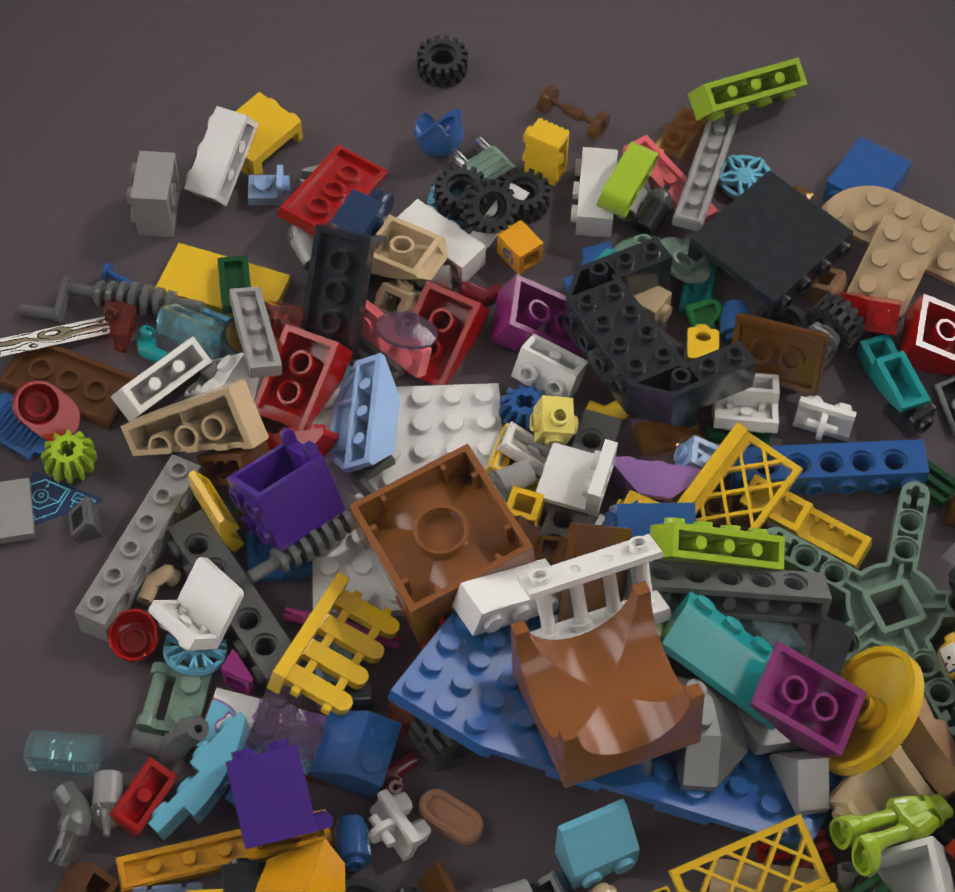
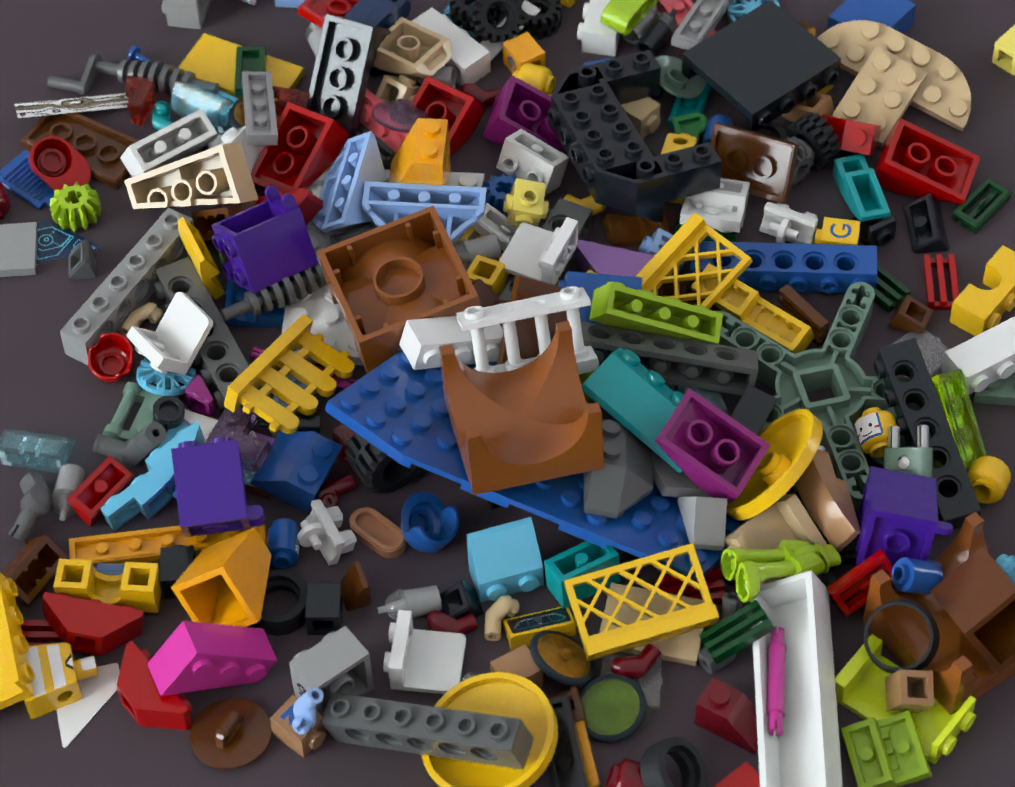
camera: 10 degrees right, 5 degrees down
(205, 696) = (168, 412): none -> black tile
(428, 435) = (456, 205): none -> light blue wedge
(436, 390) = (423, 155): none -> light orange slope
(508, 806) = (428, 523): none -> blue helmet
(537, 270) = (537, 76): none -> yellow head
(676, 846) = (576, 562): none -> teal brick
(851, 514) = (799, 308): none -> reddish brown tile
(877, 426) = (838, 232): none -> yellow brick

